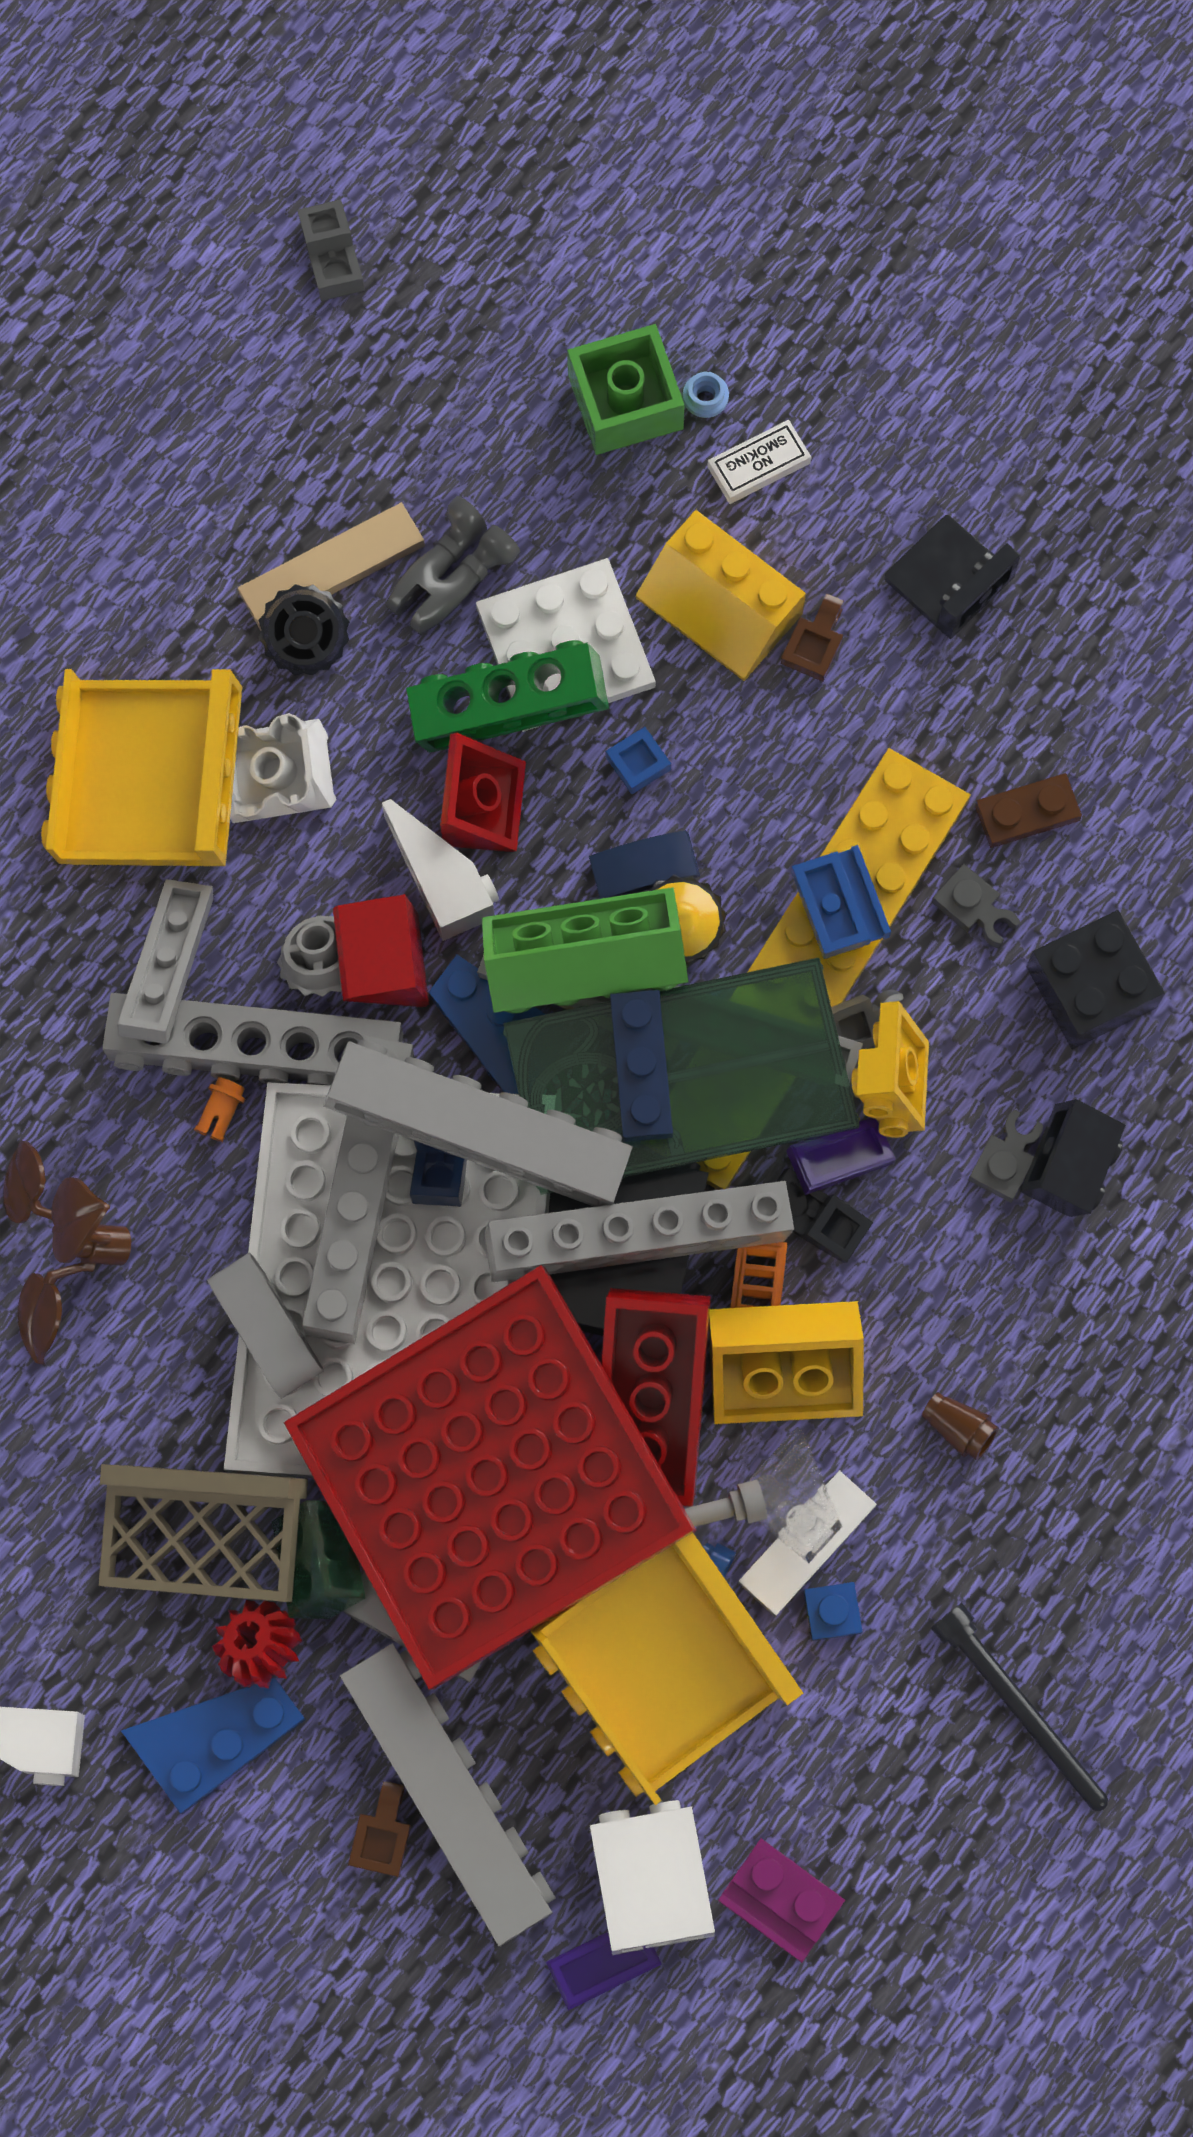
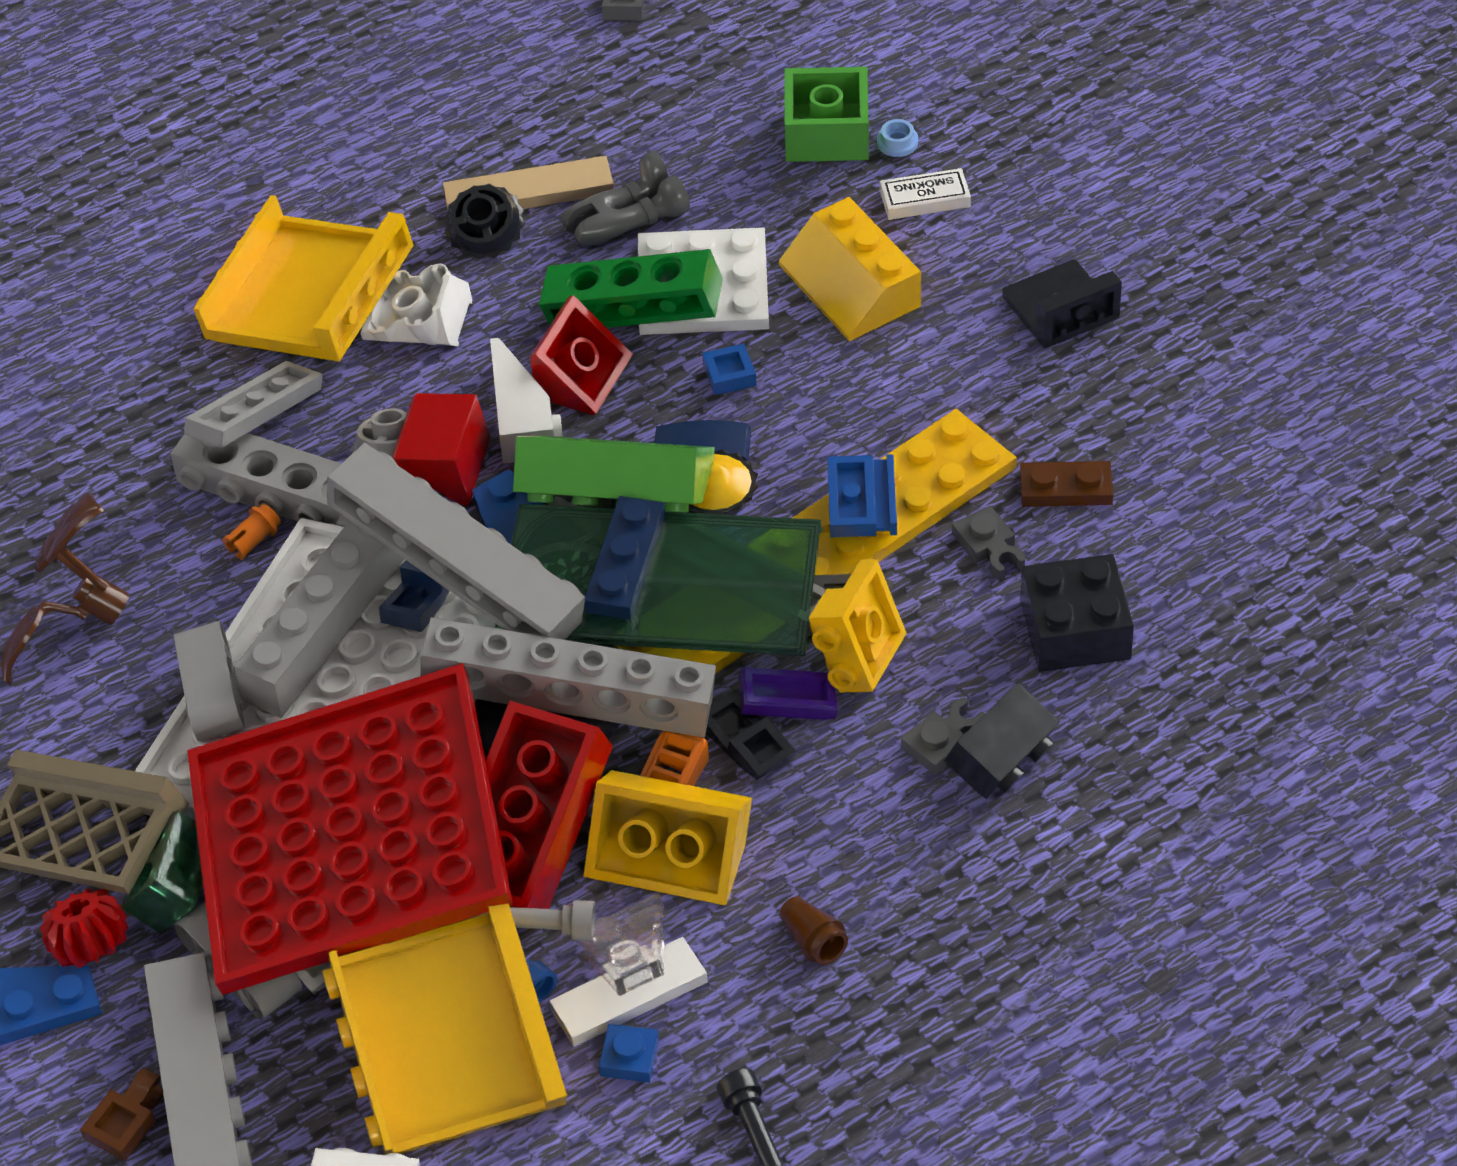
camera: 20 degrees right, 25 degrees down
(815, 643) = (921, 323): reddish brown plate -> none

